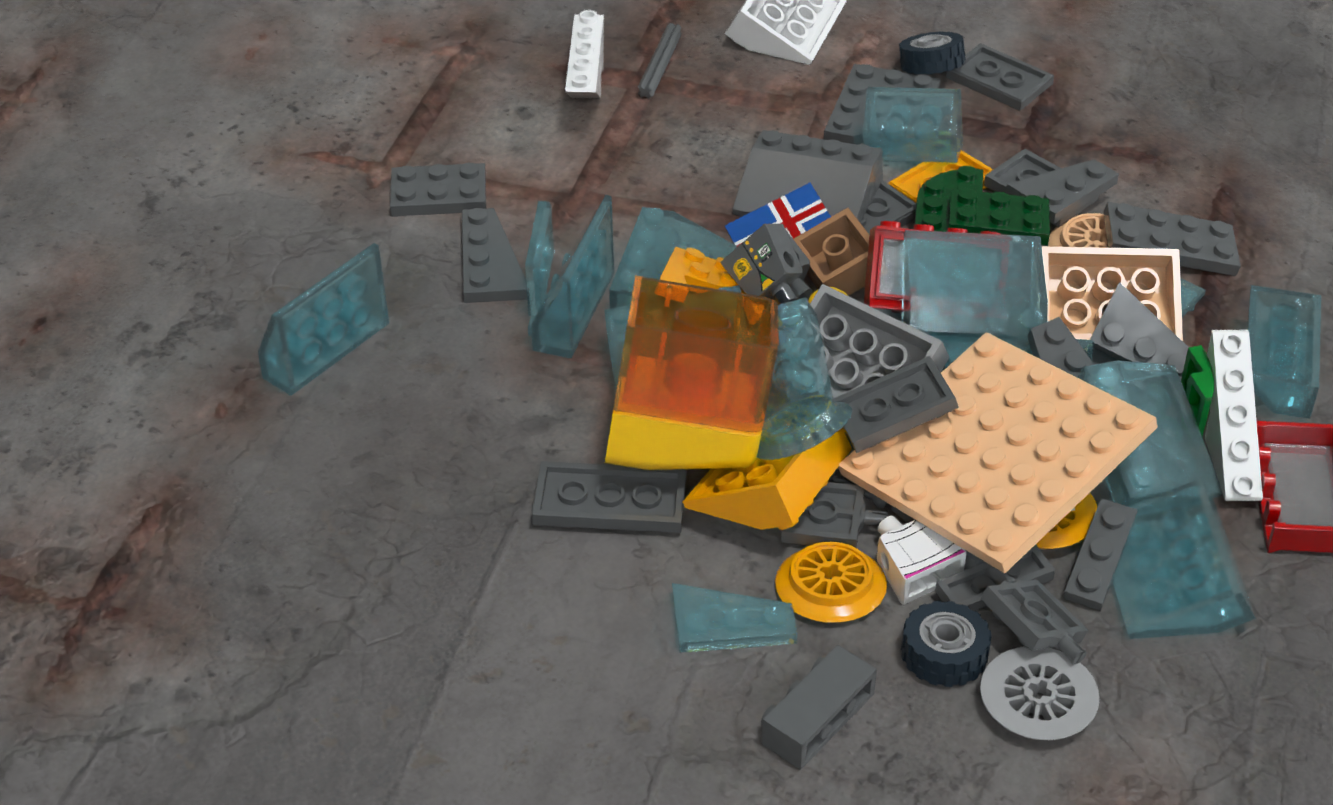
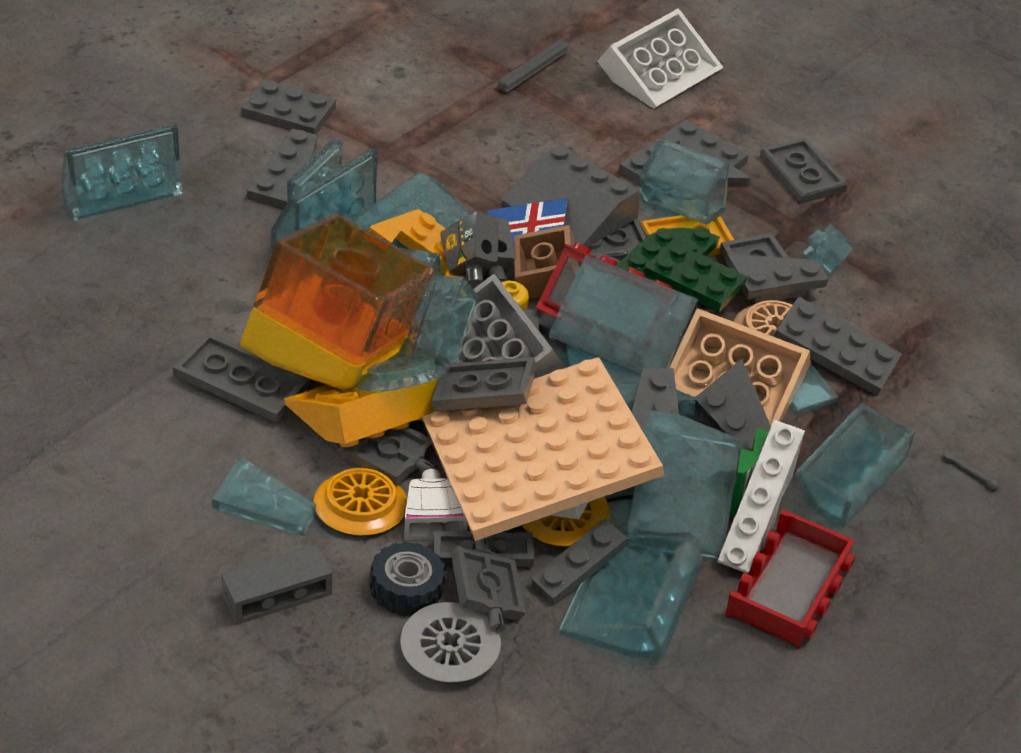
camera: 20 degrees right, 0 degrees up
(586, 56) = (464, 43): white slope -> none
(932, 52) = (753, 131): black wheel -> none
(1091, 142) = (828, 247): none -> clear light blue brick

